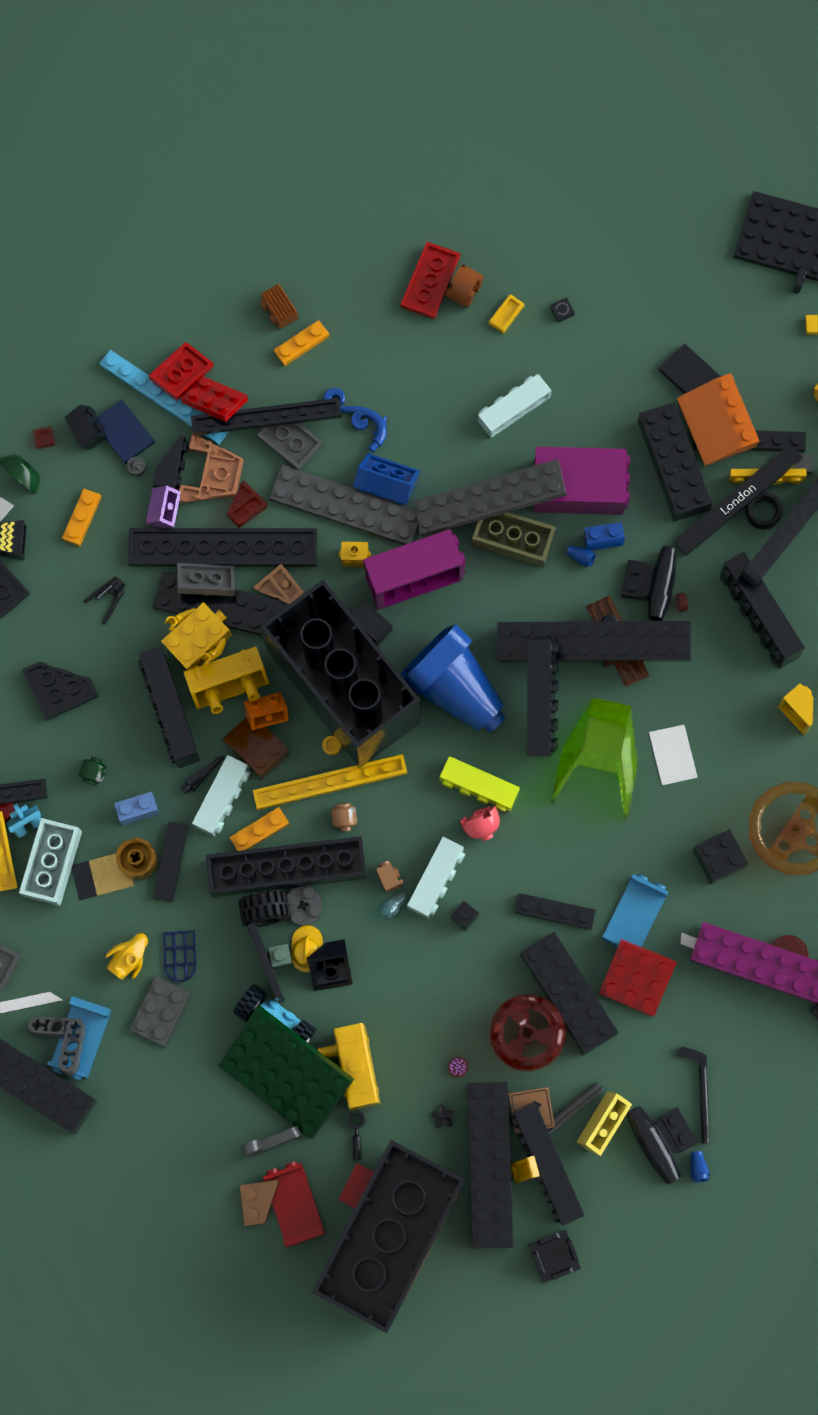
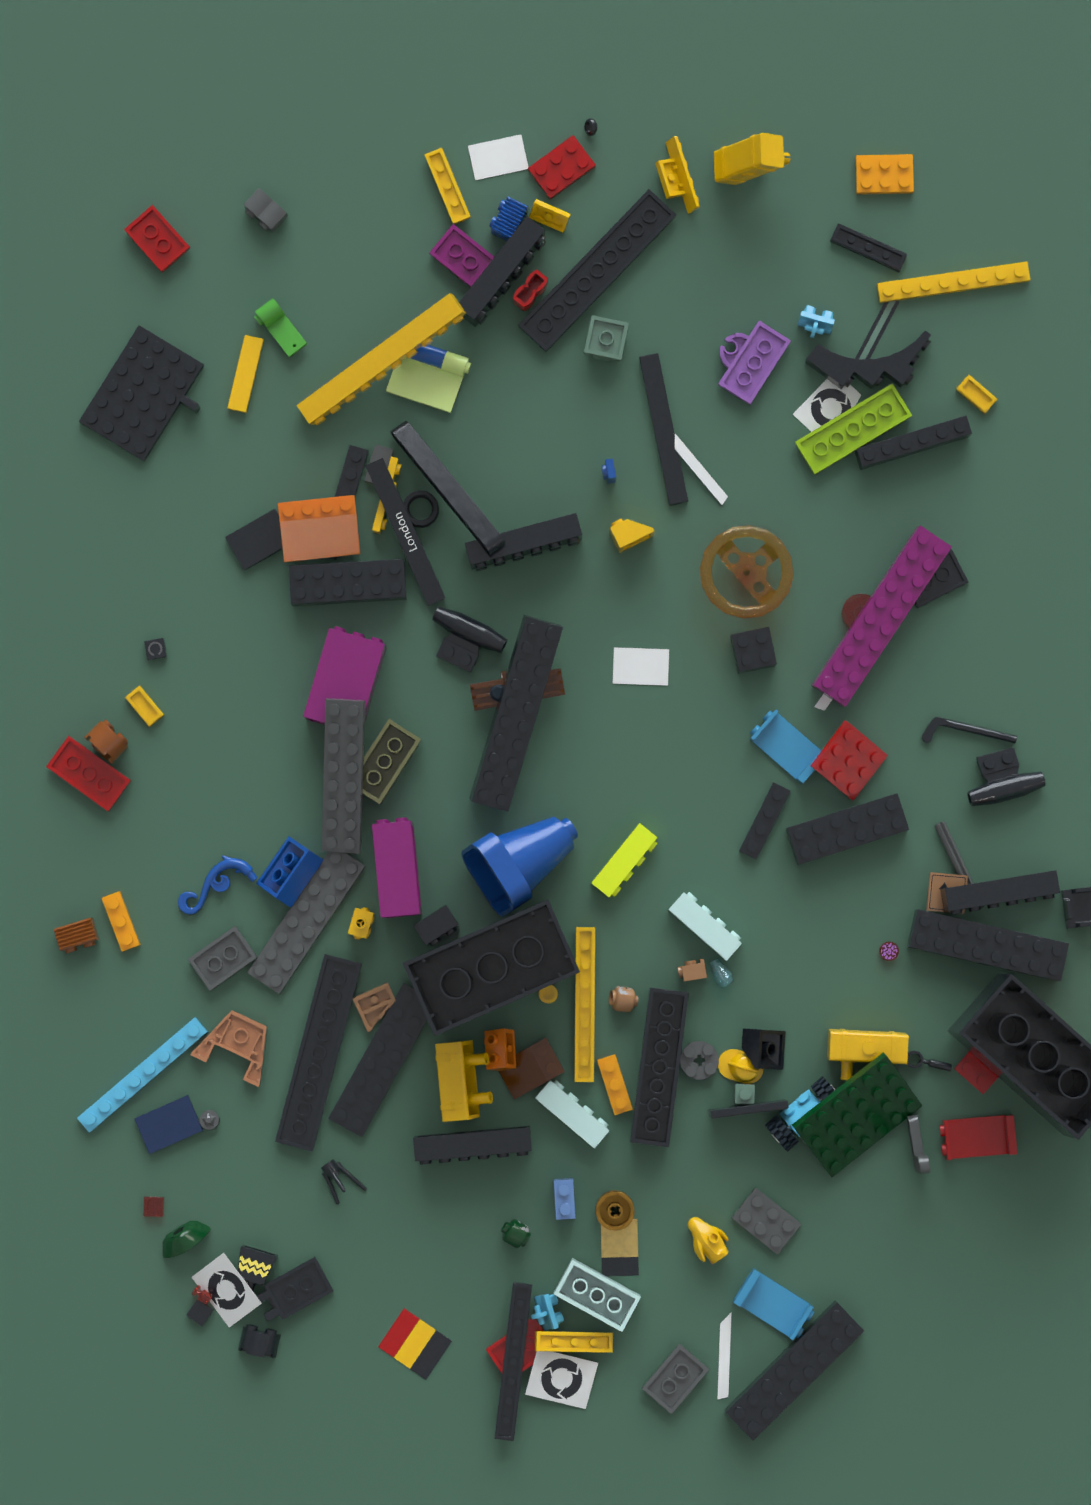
camera: 75 degrees left, 10 degrees up
(58, 689) = (423, 1249): black plate -> none
(67, 1033) = (765, 1315): dark grey beam -> none
(81, 517) = (249, 1186): light orange plate -> none
(85, 426) = (156, 1161): black brick -> none
(163, 507) = (263, 1102): medium lavender brick -> none
(170, 862) = (623, 1177): black tile -> none
(172, 464) = (224, 1088): black slope -> none
(181, 371) = (121, 1051): red plate -> none
(184, 948) = (727, 1187): clear blue window -> none
(196, 779) = (549, 1135): black piece -> none
(197, 637) = (409, 1099): yellow torso -> none
(205, 579) = (350, 1077): dark grey plate -> none
(214, 399) = (162, 1024): red plate -> none
(245, 505) = (281, 1019): clear red wing -> none
(257, 1200) = (966, 1170): medium nougat wing -> none
(264, 908) = (696, 1098): black tyre -> none
(268, 416) = (195, 976): black plate -> none
(443, 1116) = (931, 977): black plant -> none
(464, 915) = (749, 908): black brick -> none
(481, 823) = (664, 868): coral cylinder -> none
(511, 1052) = (887, 856): clear red wheel -> none
(514, 405) = (247, 725): light aqua brick -> none
(524, 1169) = (1001, 914): yellow tile -> none
(541, 696) = (559, 778): black brick -> none
(582, 555) = (419, 700): blue cone -> none
(602, 742) = (615, 733): clear neon green windscreen -> none
(604, 536) = (407, 673): blue brick -> none
(604, 1123) = (976, 829): light yellow brick -> none
(681, 602) = (493, 615): clear red tile -> none
(699, 1168) = (1036, 752): blue cone -> none

